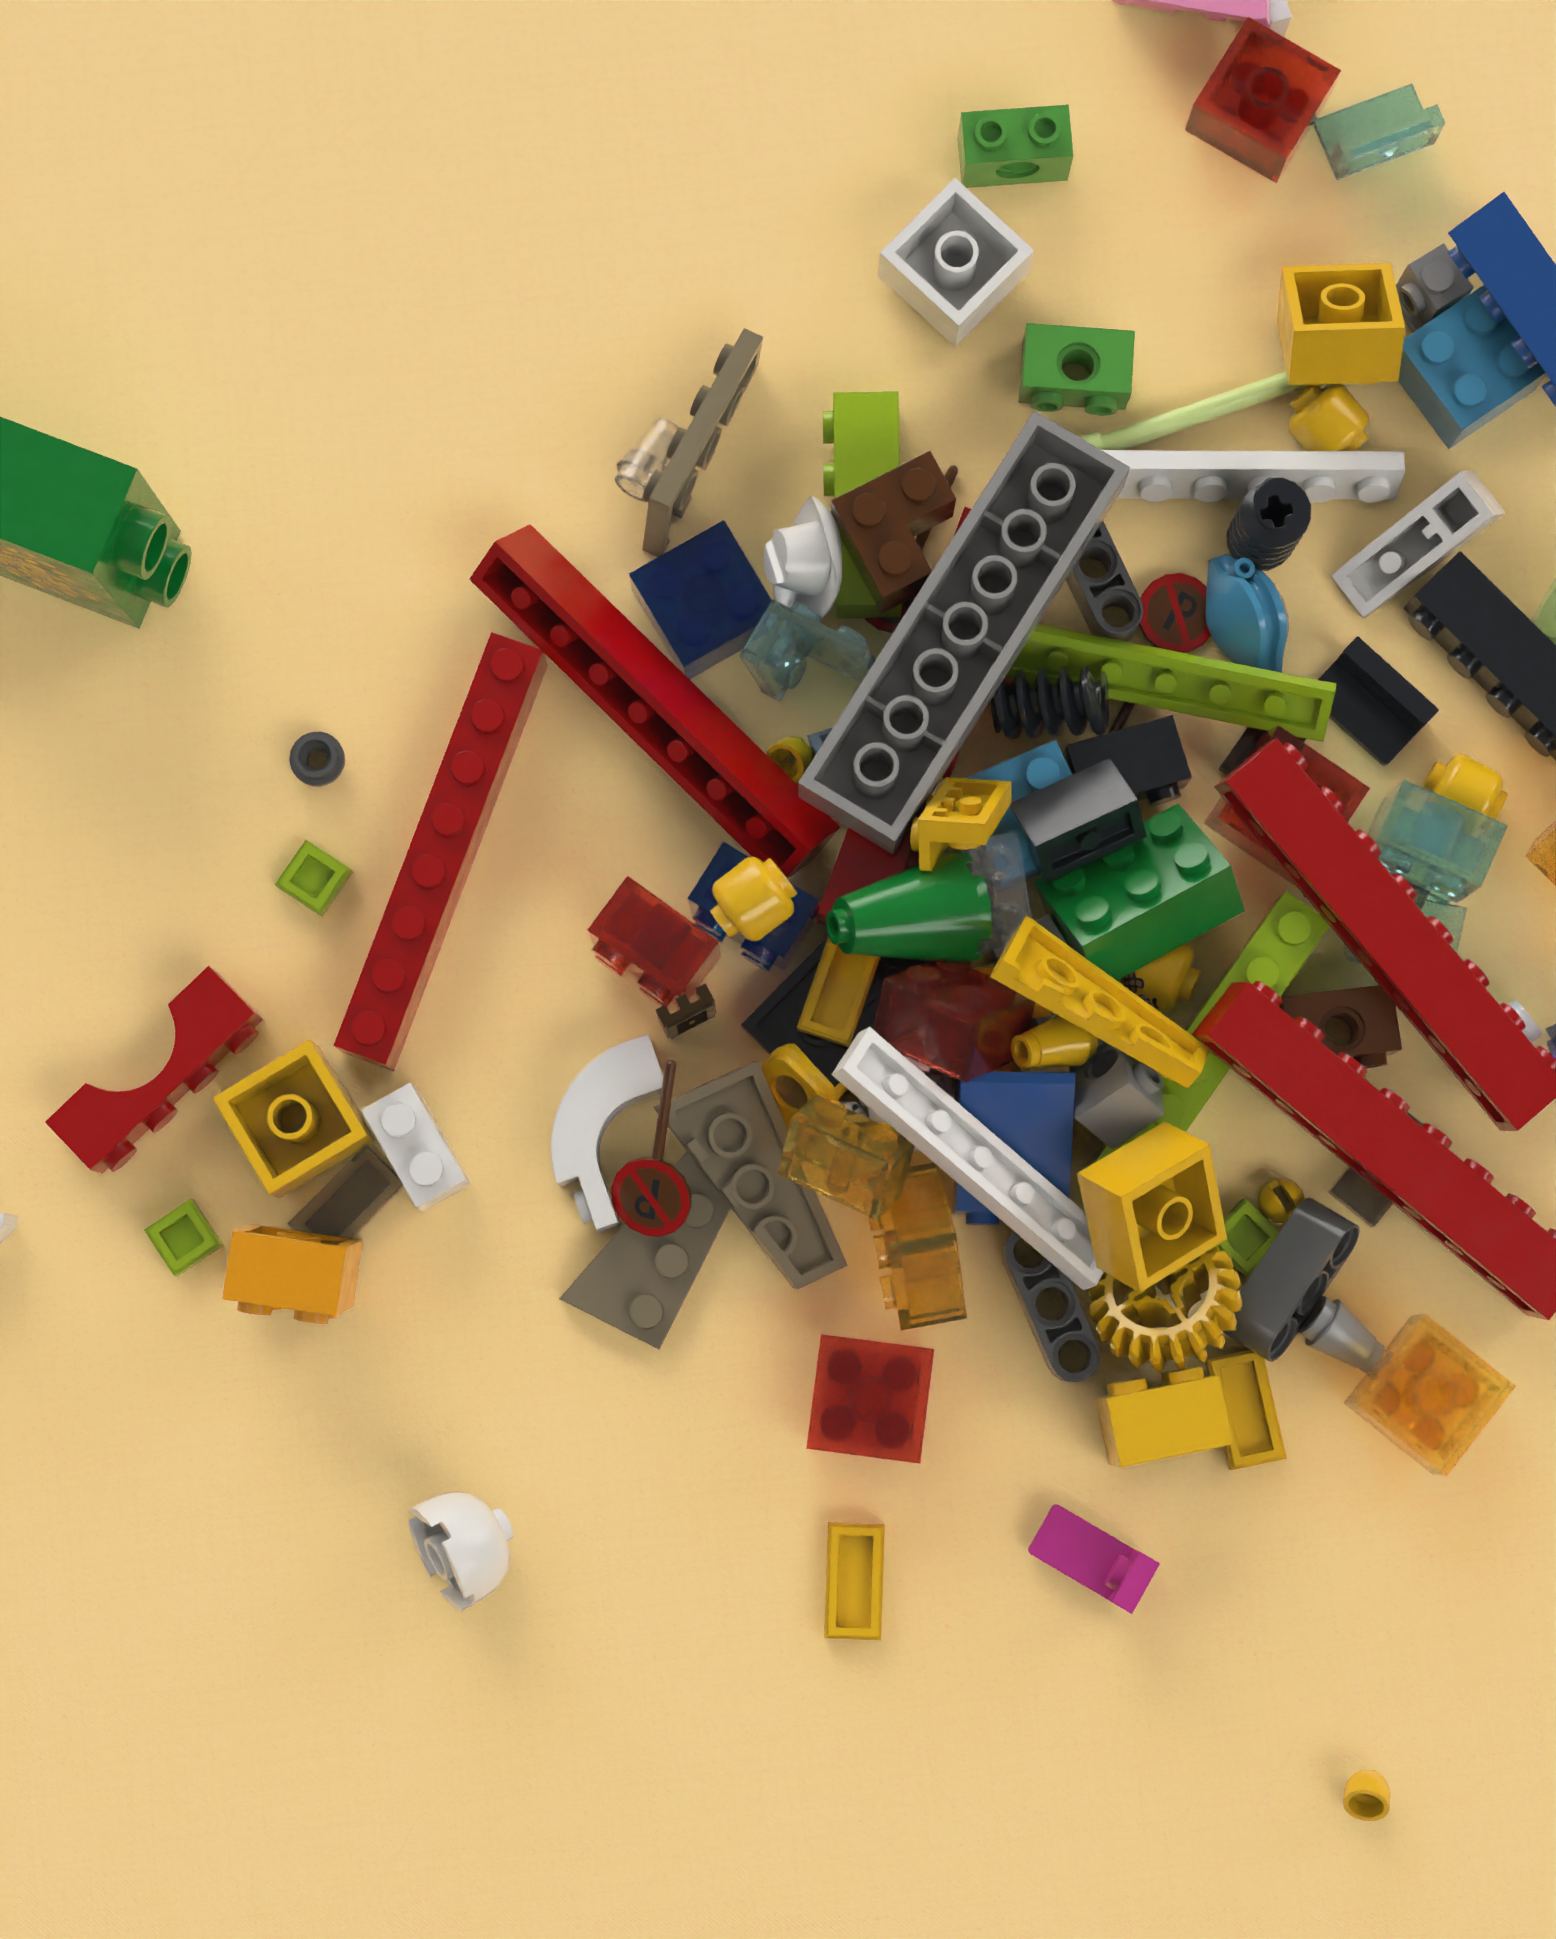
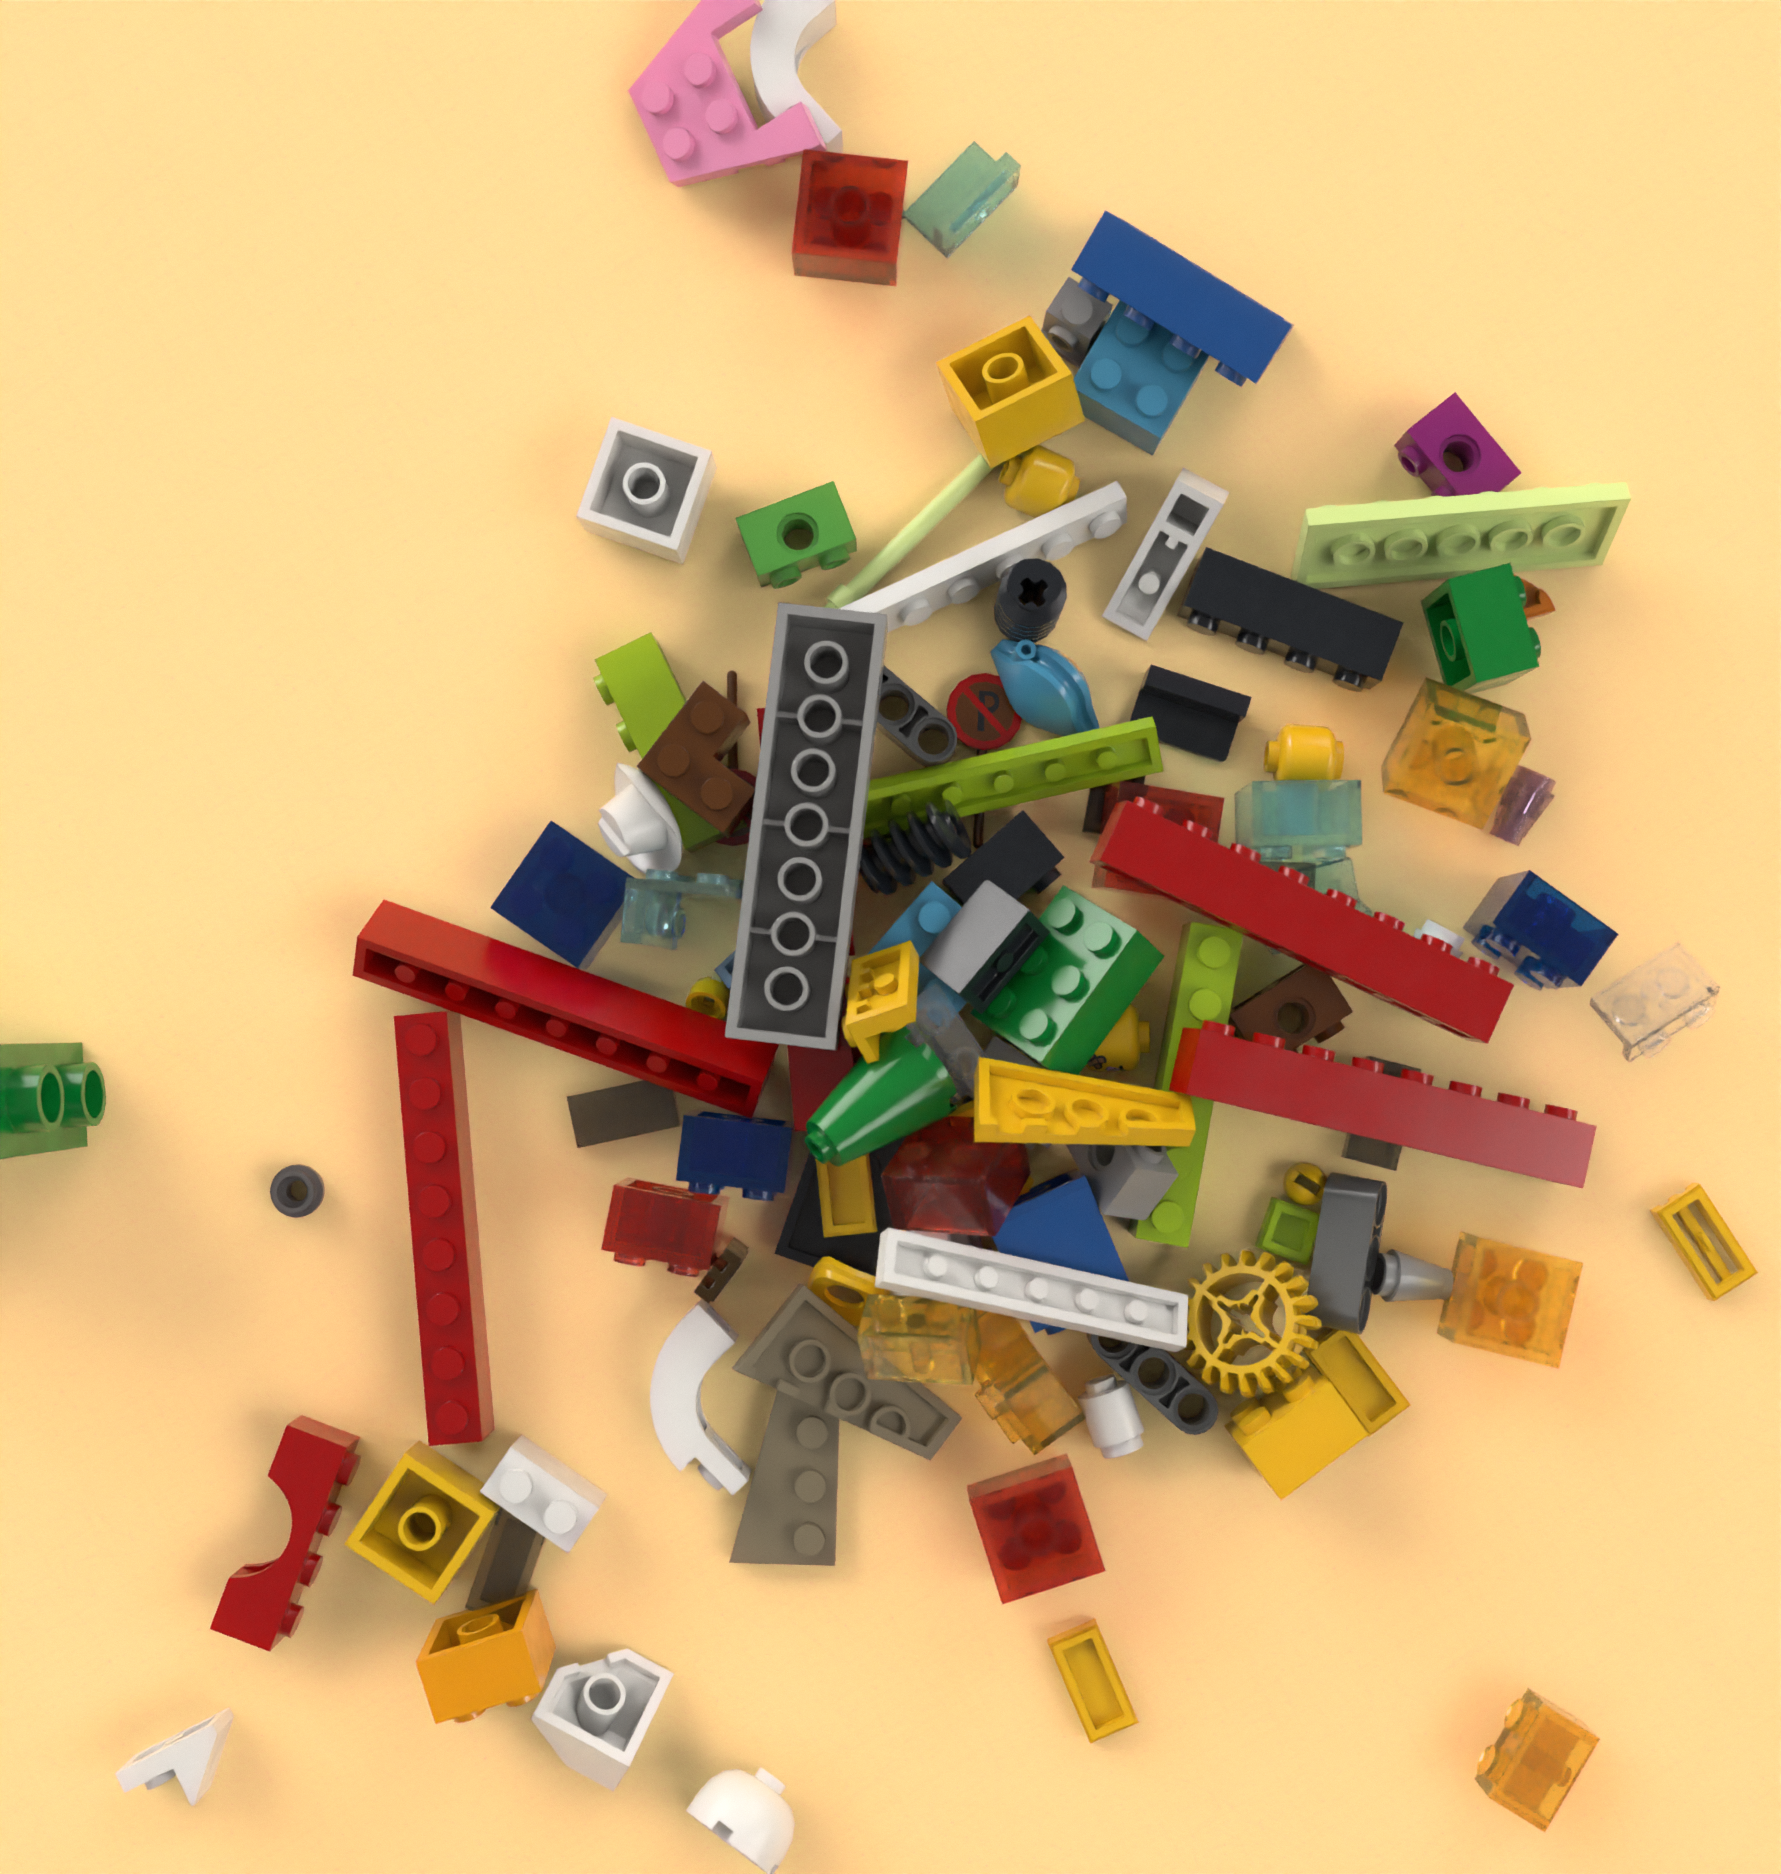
camera: 25 degrees left, 5 degrees up
(184, 1237) = (381, 1660): lime tile -> none
(314, 878) = (344, 1295): lime tile -> none
(370, 1382) = (601, 1712): none -> white slope
(645, 458) = (463, 792): clear cone -> none
(649, 1191) = (762, 1439): piece -> none
(659, 828) = (622, 1112): none -> clear smoke tile
(671, 490) = (498, 754): dark tan wing -> none
(753, 899) = (733, 1160): yellow head -> none
(991, 1330) = (1111, 1416): none -> white brick
(1015, 146) = (652, 359): bright green brick -> none
(1053, 1045) = (1049, 1162): yellow cone -> none
(1093, 1558) = (1289, 1569): dark pink bracket -> none
(1152, 1206) = (1205, 1262): yellow brick -> none
(1252, 1856) = (1535, 1759): none -> clear yellow brick
(1367, 1796) = (1606, 1658): yellow hinge -> none

